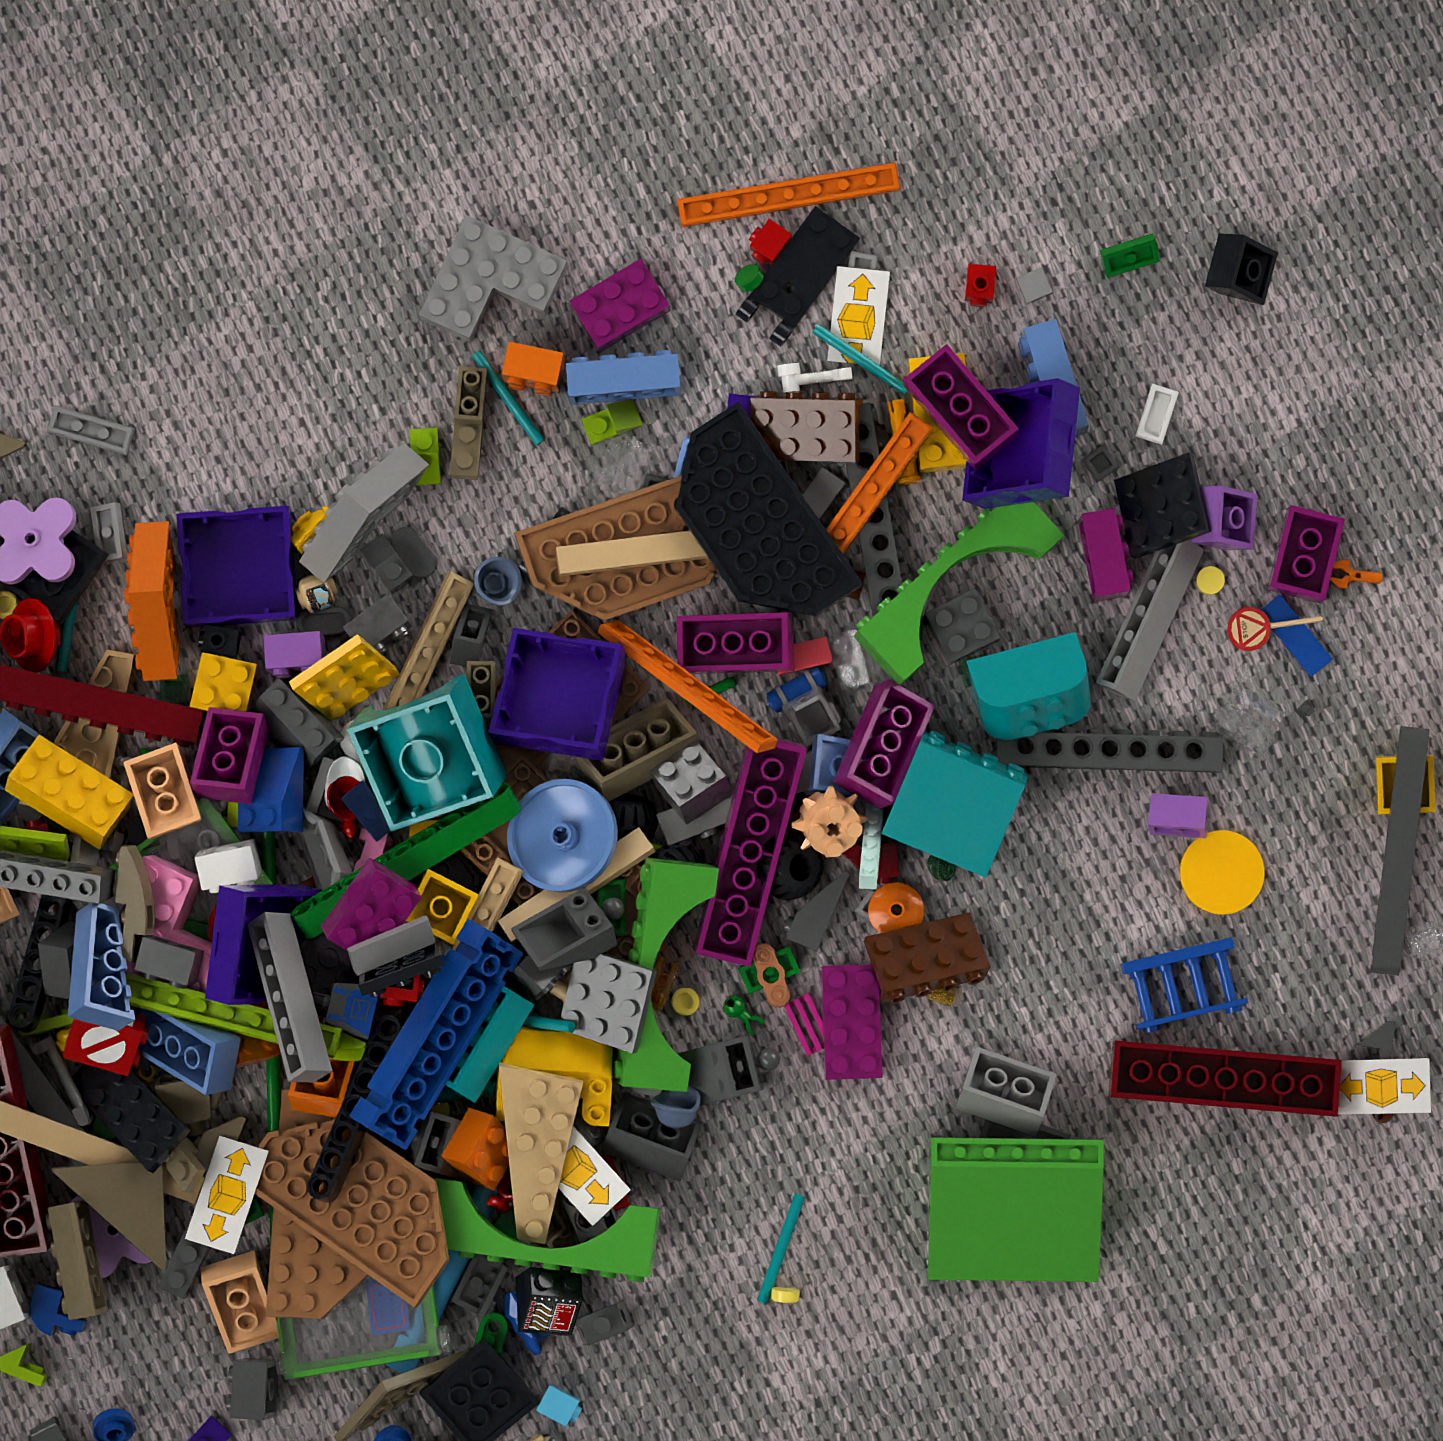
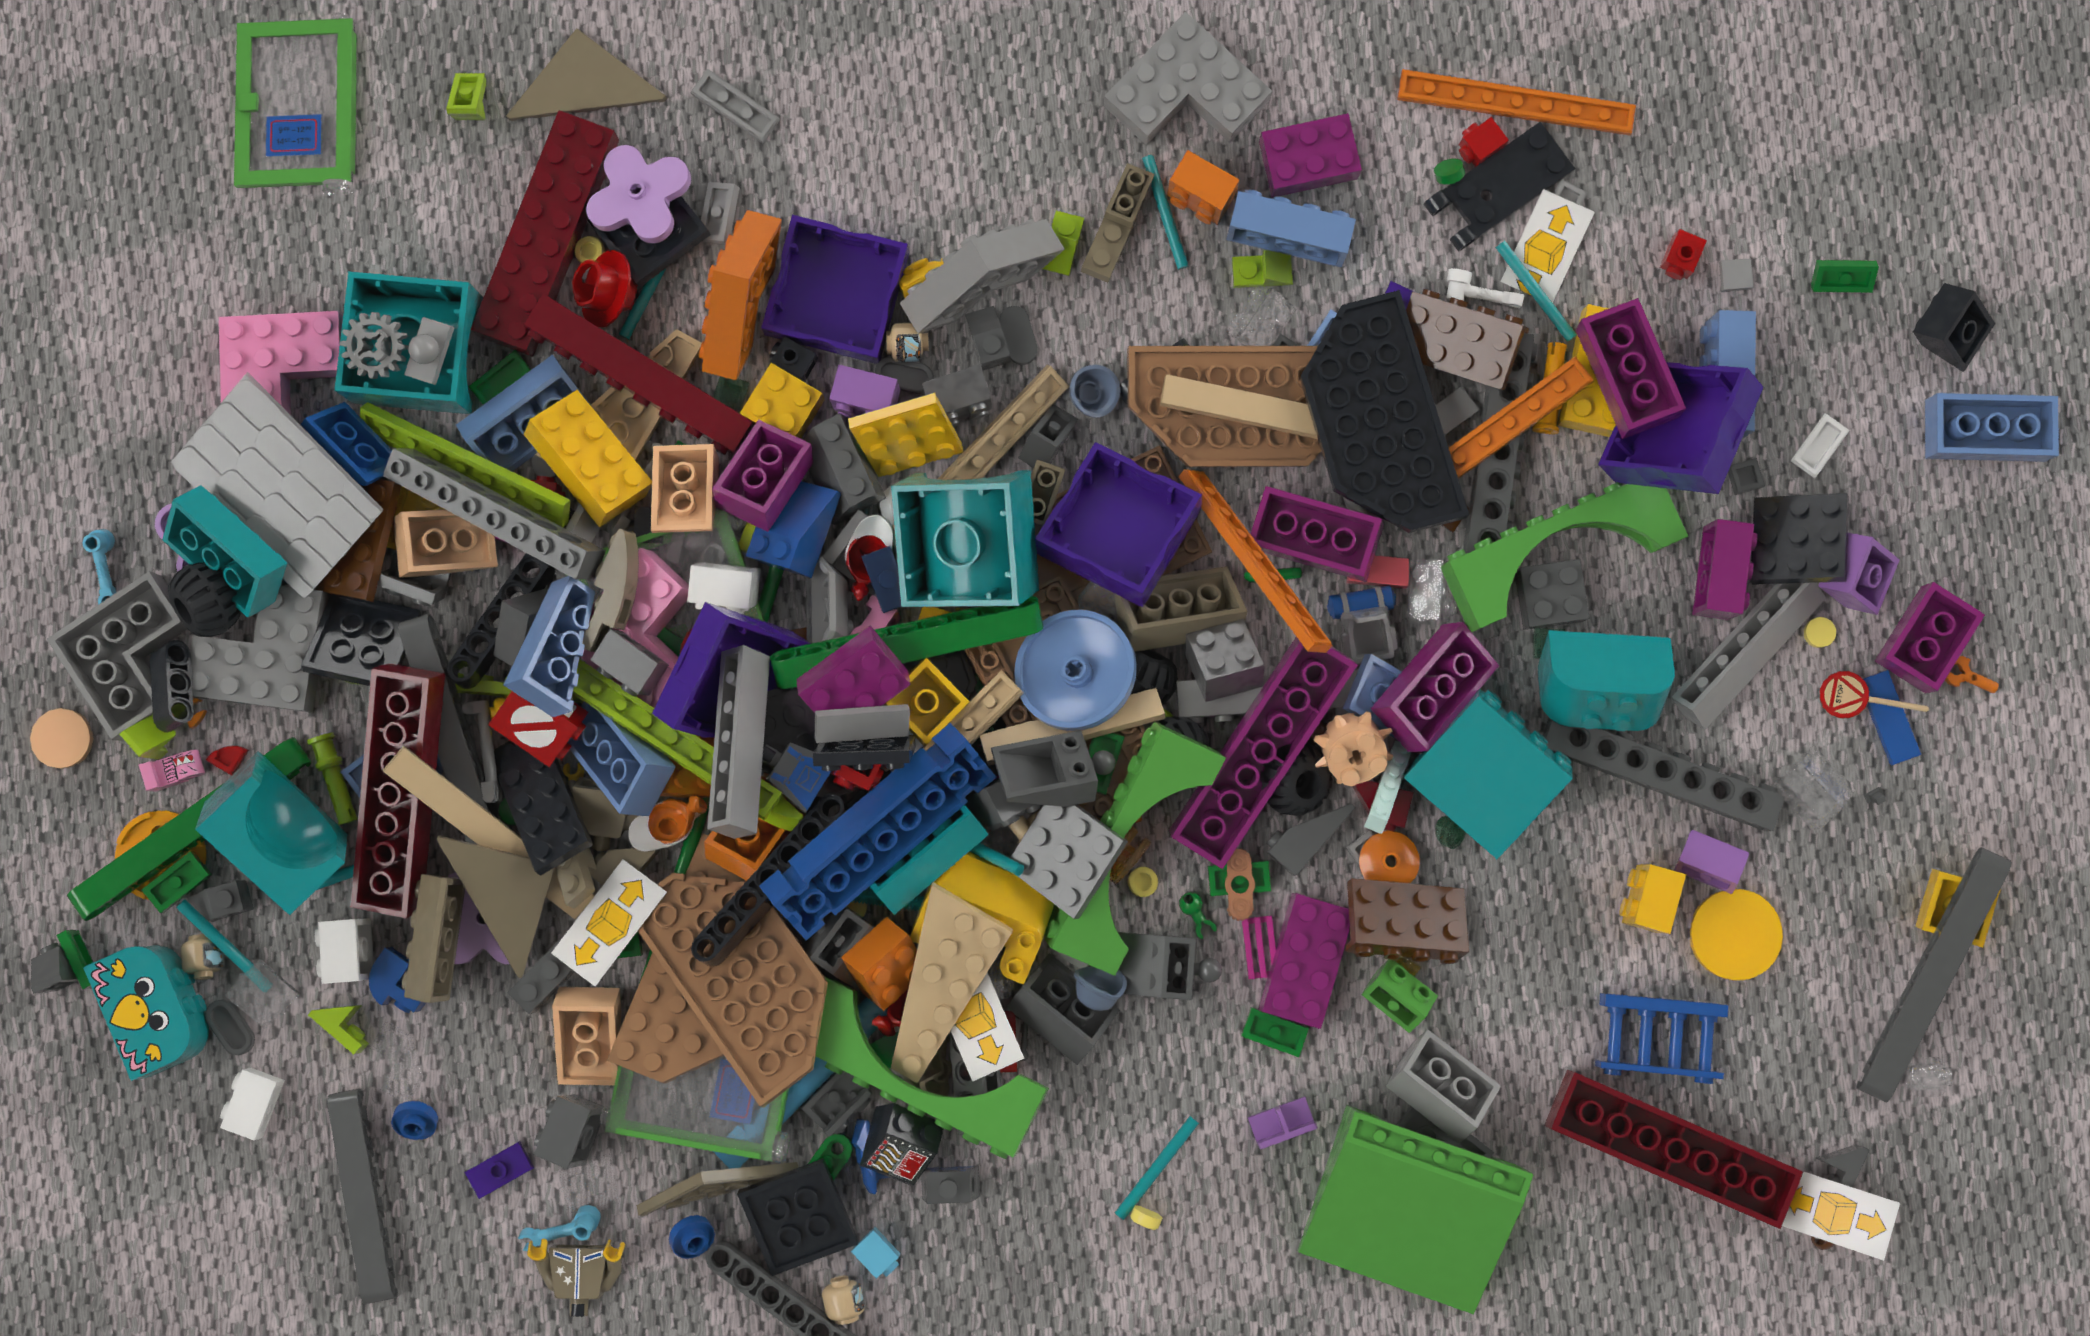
camera: 15 degrees right, 0 degrees up
(248, 1092) = (666, 825): none -> orange hair
(844, 1094) = (1274, 1032): none -> green plate
(877, 1171) = (1282, 1122): none -> medium lavender panel
(946, 1025) = (1399, 995): none -> bright green brick
(1135, 865) = (1652, 898): none -> yellow brick
(1300, 349) = (1991, 427): none -> medium blue brick

